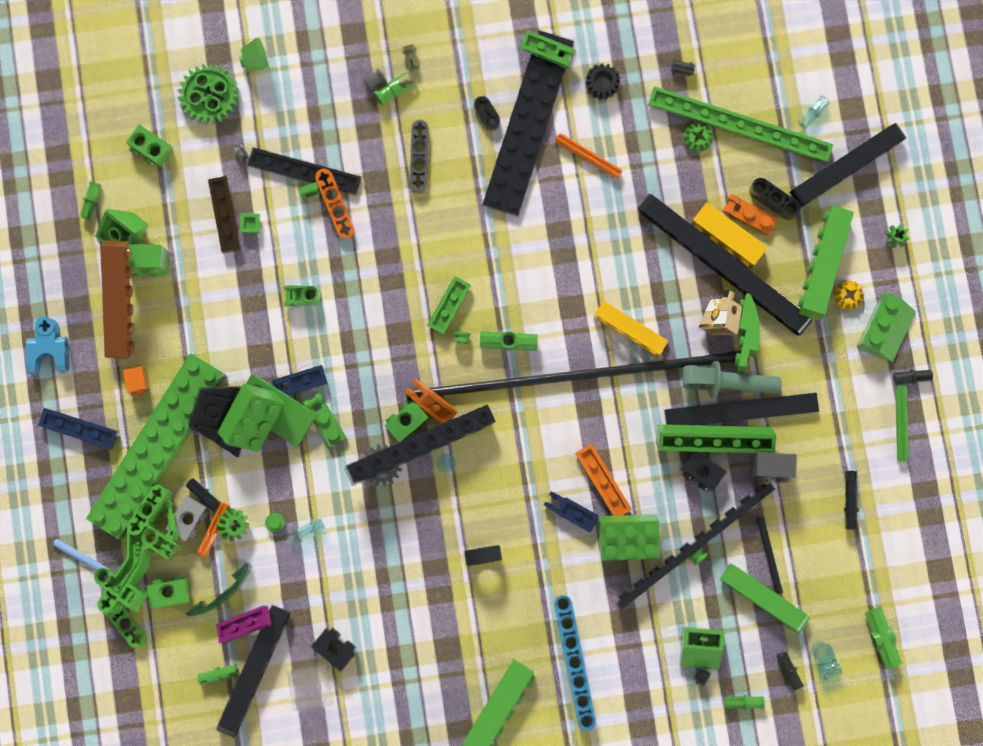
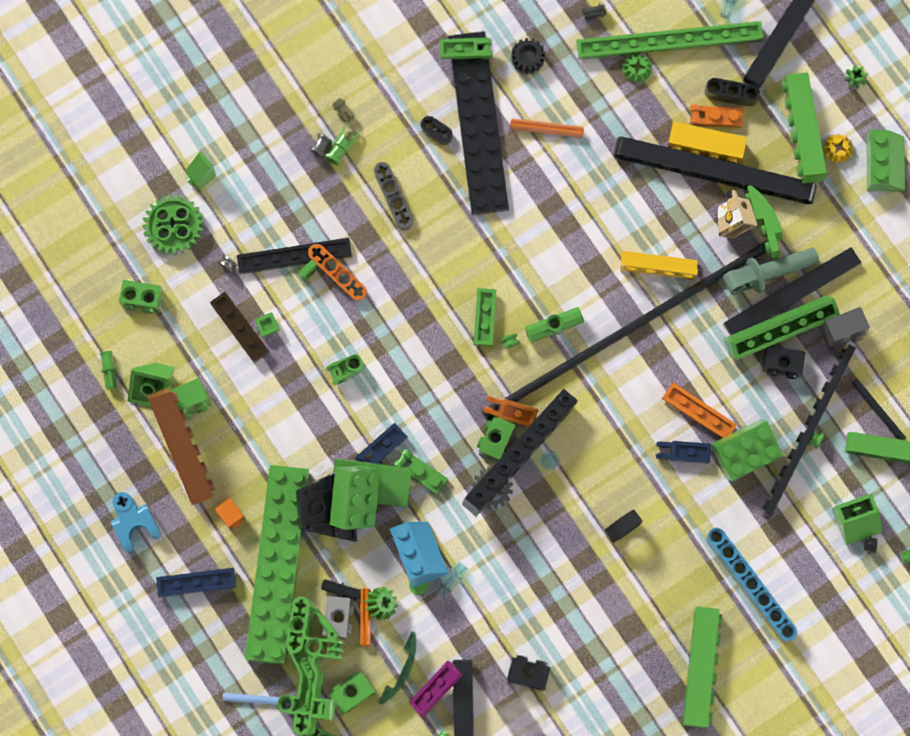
camera: 25 degrees left, 5 degrees down
(287, 493) = (418, 552): none -> dark azure slope

